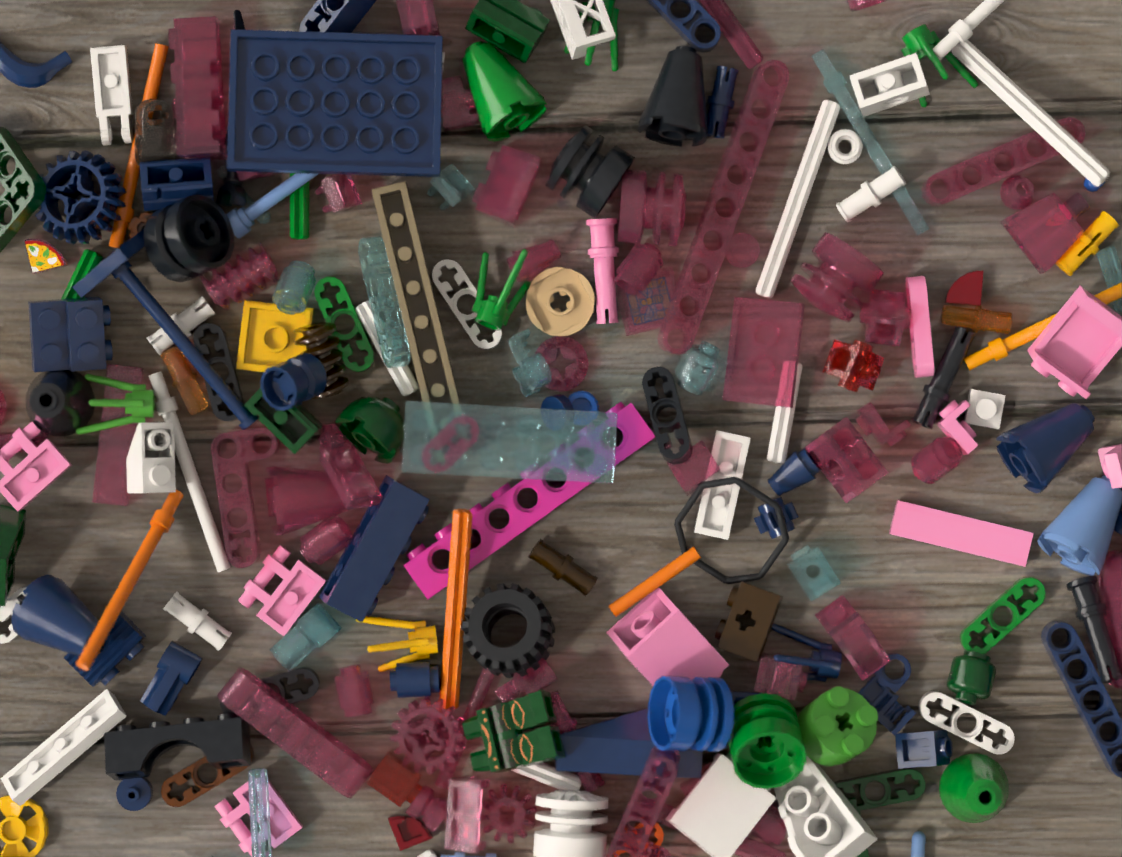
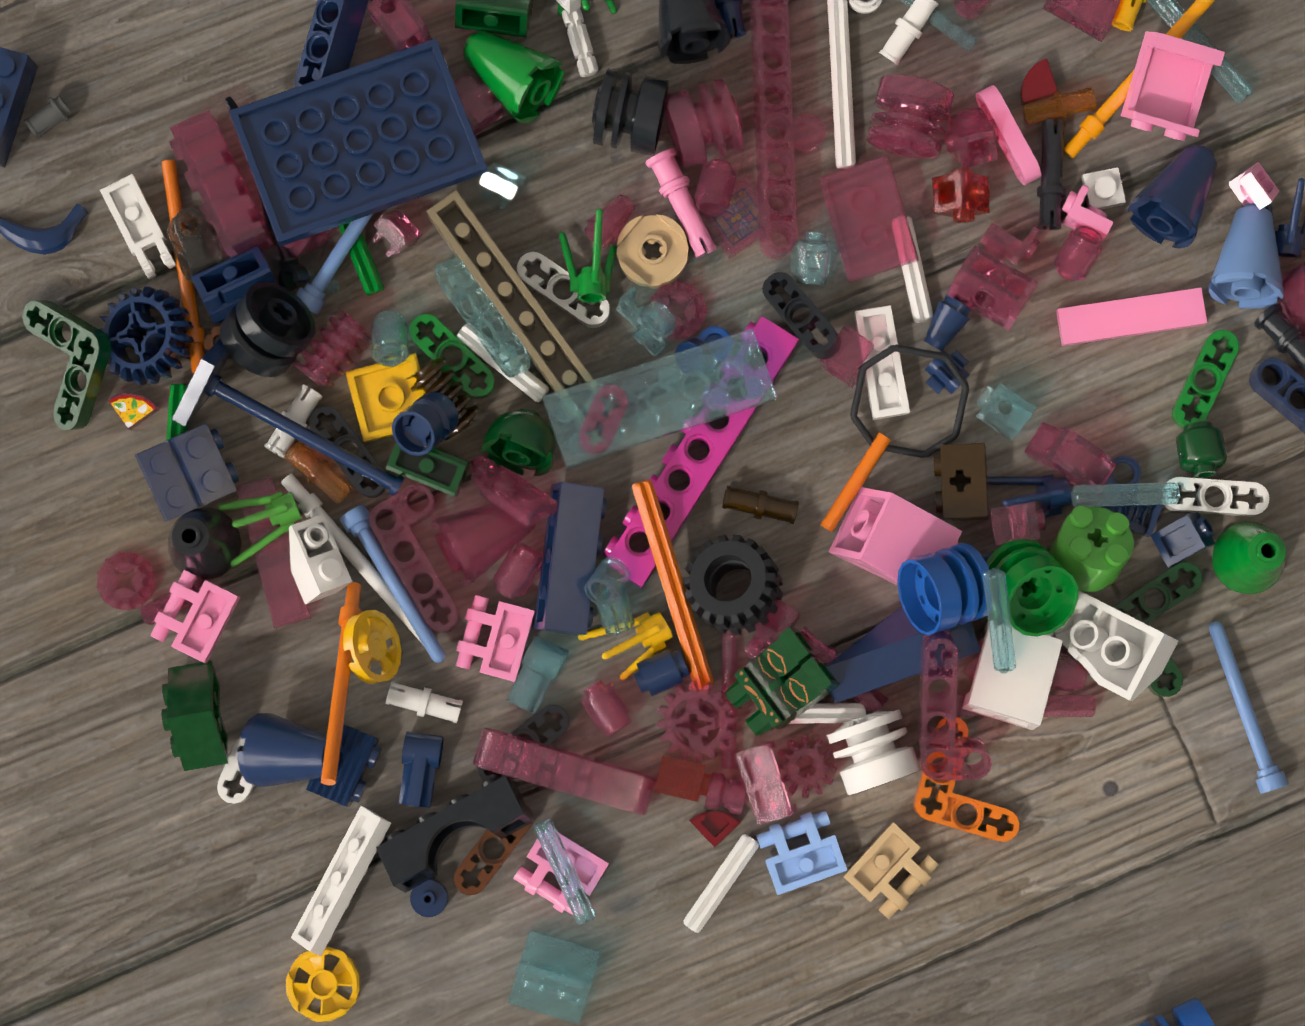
camera: 20 degrees left, 5 degrees down
(167, 551) = (366, 638): none -> yellow piece
(202, 439) = (358, 524): none -> medium blue piece
(396, 594) = (609, 593): none -> clear light blue piece
(507, 185) = (556, 157): clear pink slope -> none
(572, 88) = (580, 43): none -> white axle
(724, 762) = (999, 620): none -> clear light blue axle
(886, 691) = (1125, 494): none -> clear light blue axle

